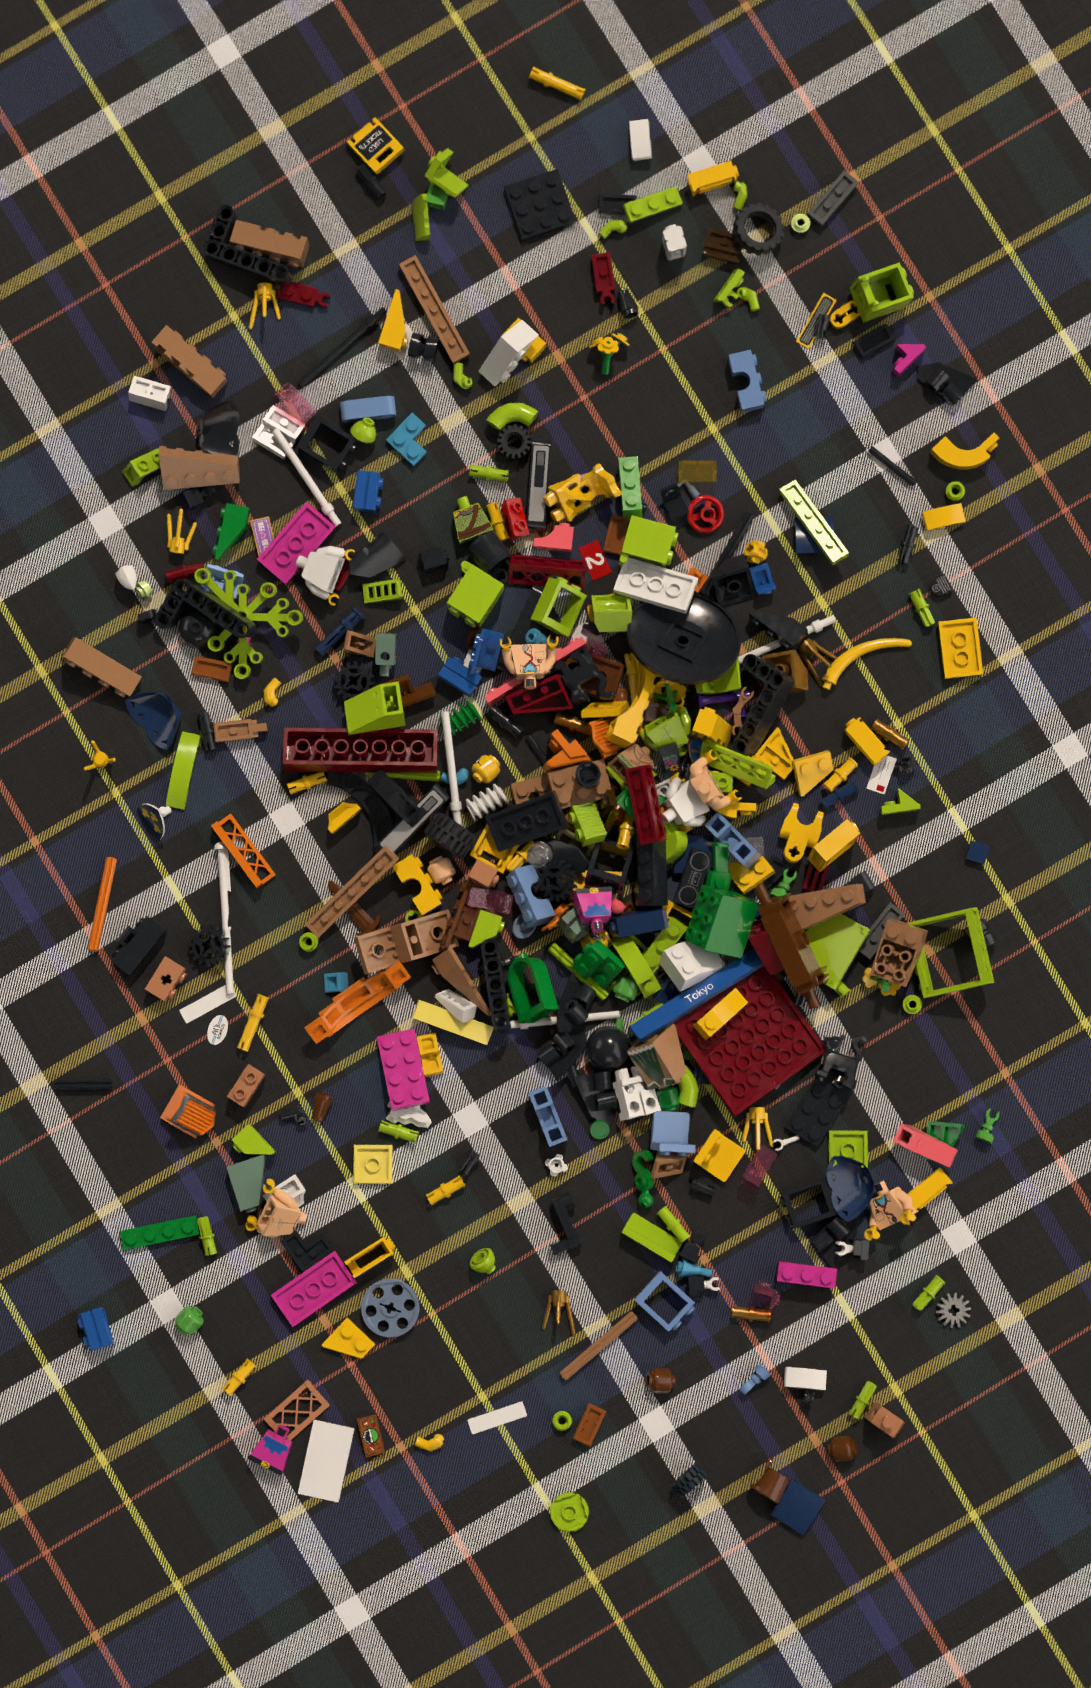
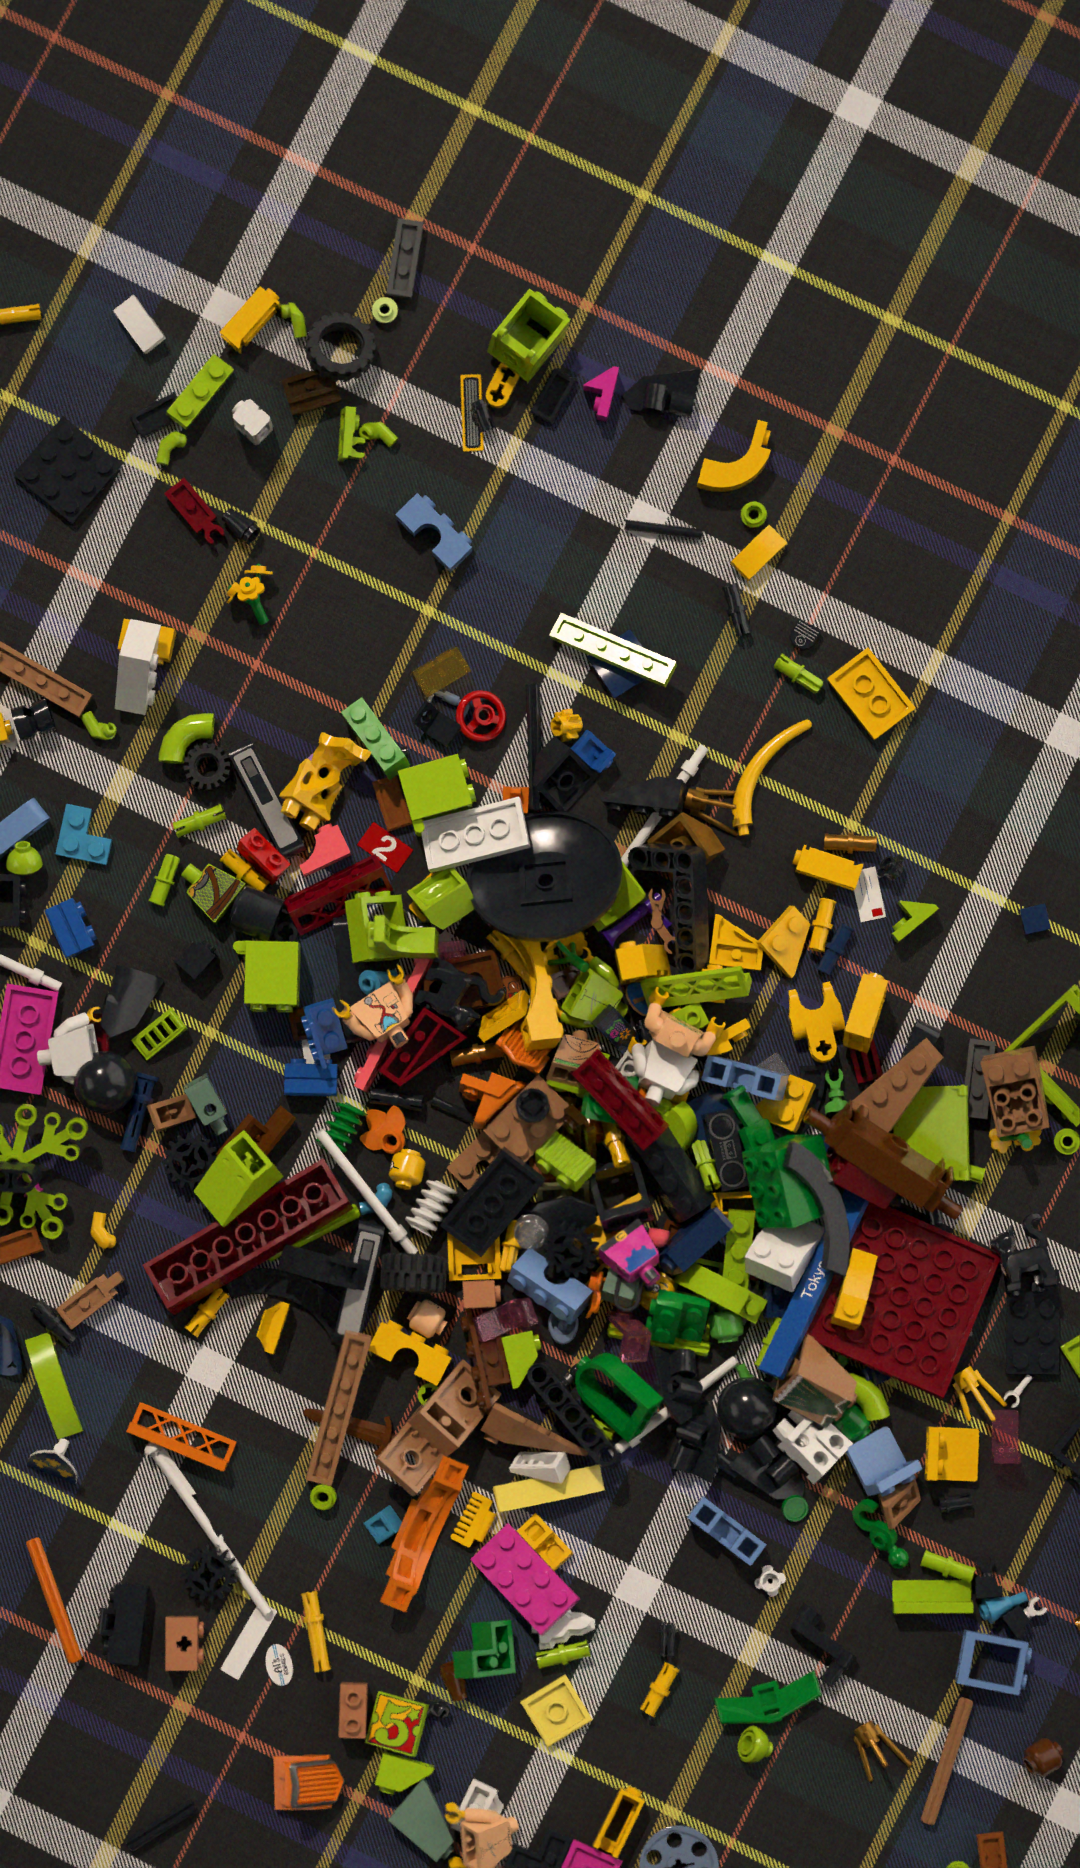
camera: 35 degrees left, 0 degrees up
(268, 1111) = (397, 1723): none -> tile
(329, 600) = (105, 1082): none -> black piece
(354, 1102) = (491, 1651): none -> green brick
(396, 1019) = (481, 1521): none -> yellow piece
(444, 497) = (164, 879): none -> lime axle
(486, 734) = (383, 1126): none -> orange plate
(509, 1239) = (769, 1701): none -> green plate
(564, 960) = (635, 1336): none -> clear pink bracket
(569, 623) = (402, 940): none -> lime arch
(674, 879) = (705, 1165): none -> lime axle
(737, 948) = (829, 1204): none -> black tile

